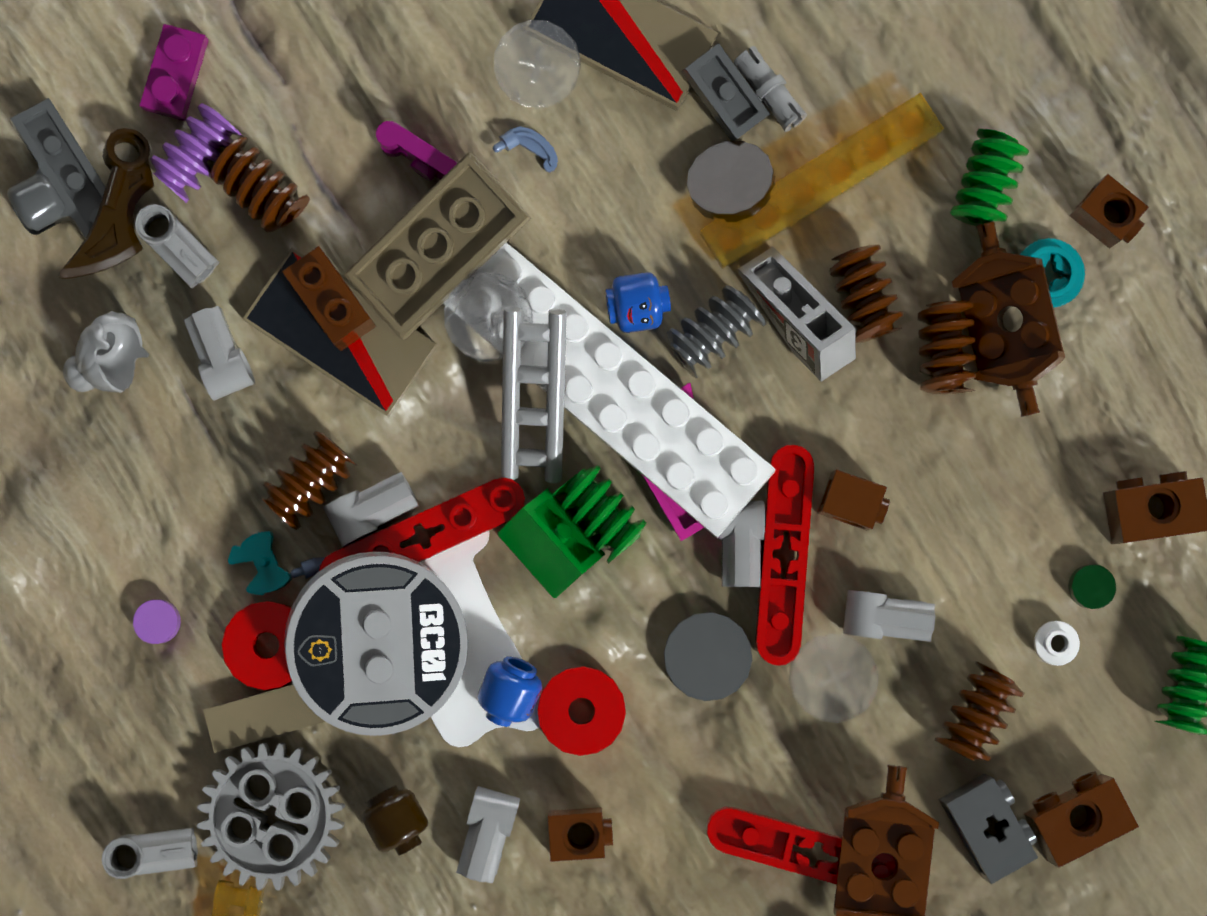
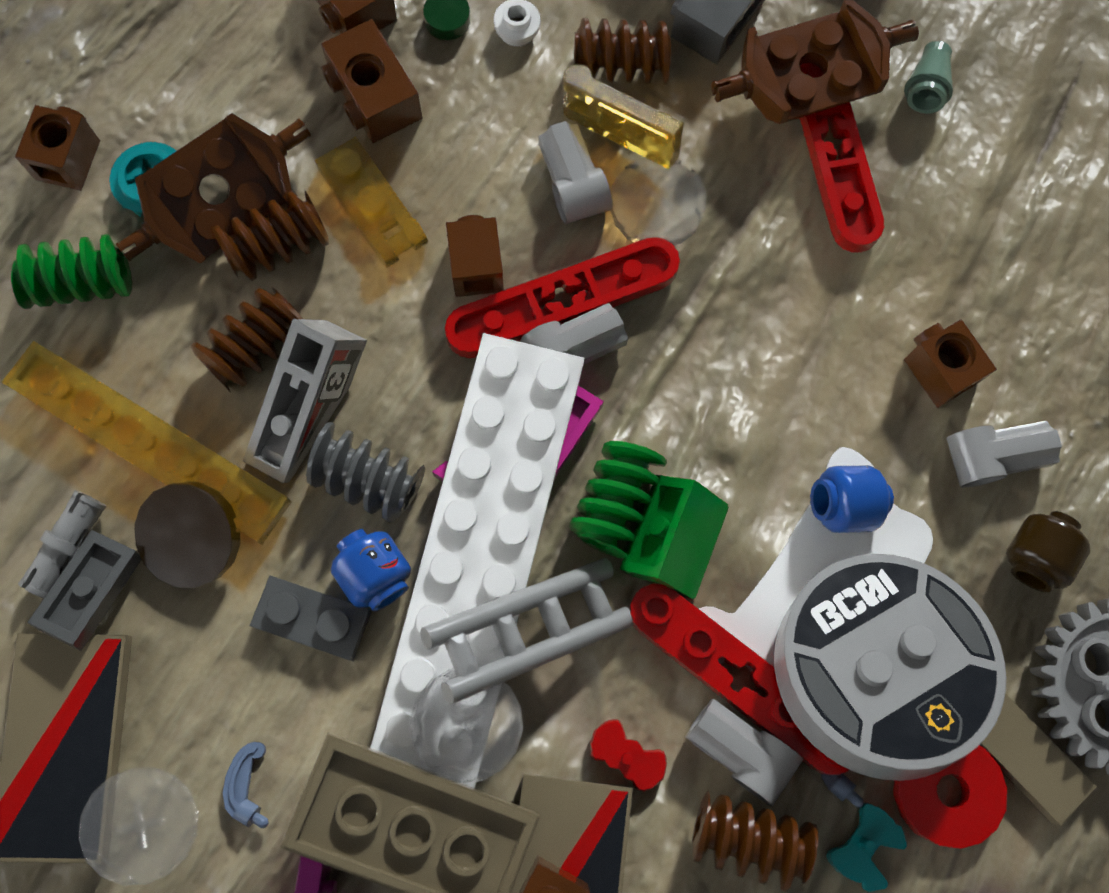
camera: 120 degrees left, 10 degrees down
(411, 425) = (640, 766): none -> red piece
(581, 737) = (841, 398): red tile -> none
(625, 243) = (310, 618): none -> dark grey plate
(708, 656) = (703, 325): dark grey tile -> none
(917, 680) = (621, 117): none -> clear yellow plate
(946, 441) = (370, 201): none -> clear yellow plate
(1079, 491) = (365, 57): none -> reddish brown brick

